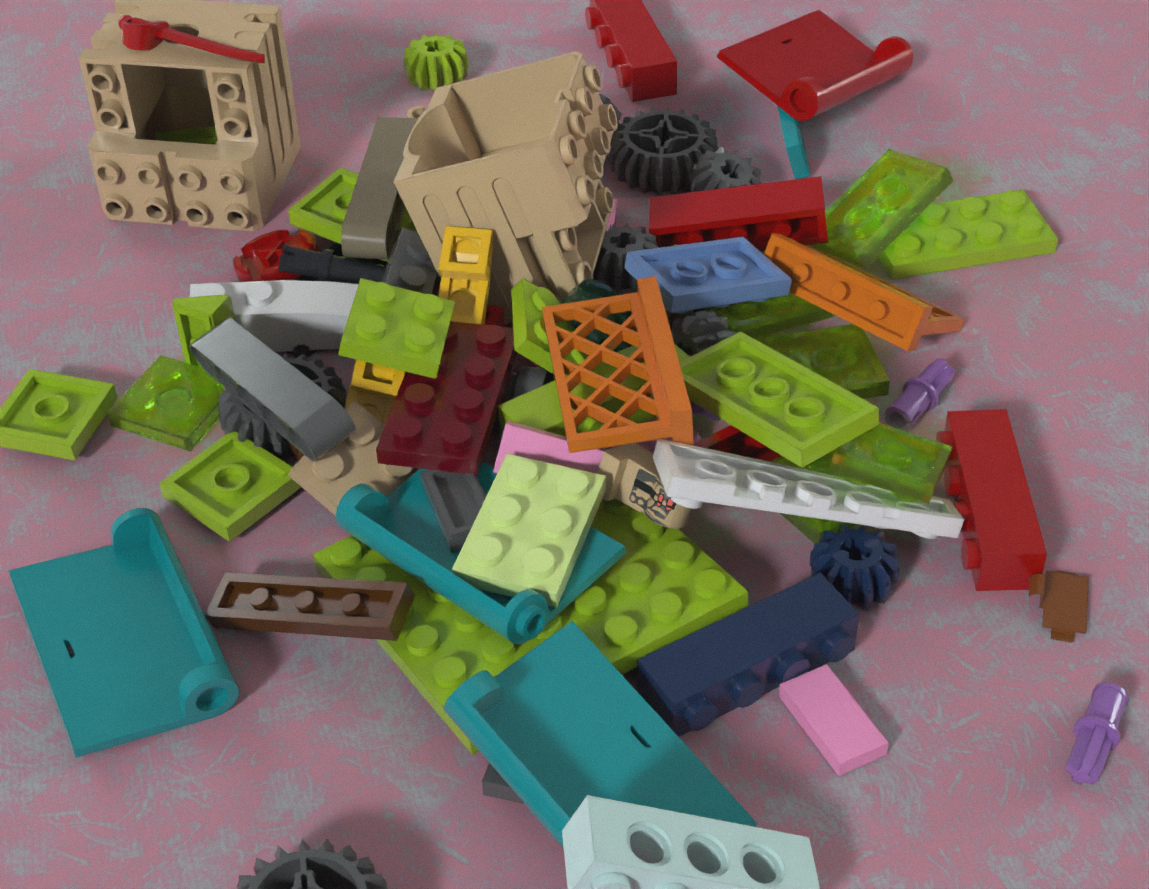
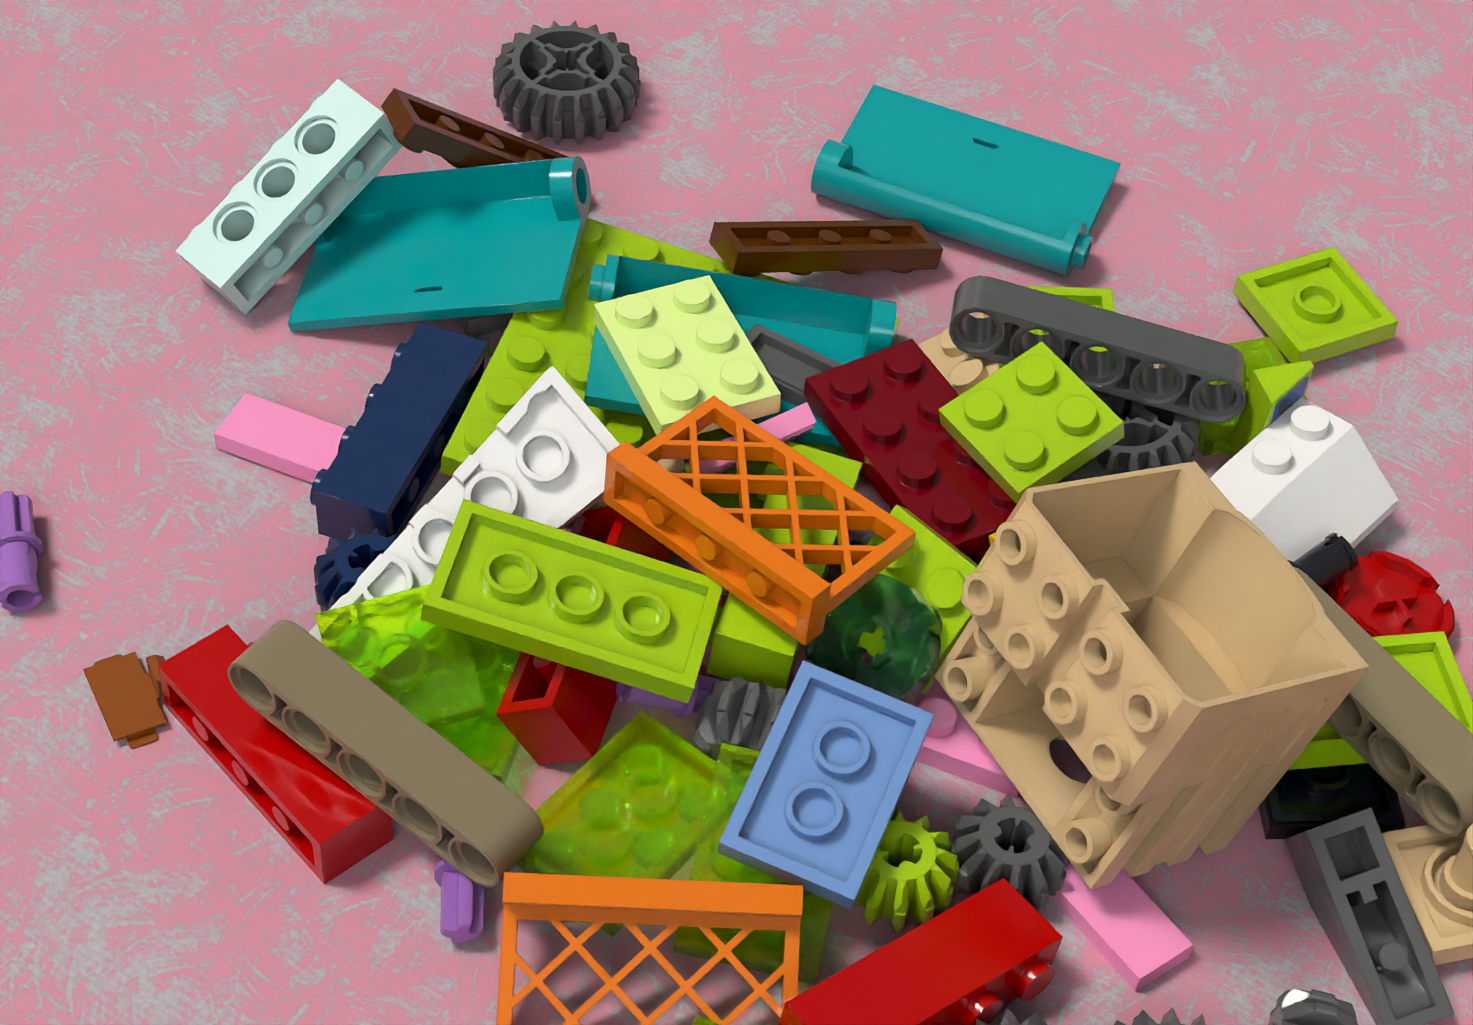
camera: 135 degrees right, 5 degrees up
(492, 805) = (456, 137): none -> reddish brown plate
(947, 408) = (386, 753): none -> dark tan beam

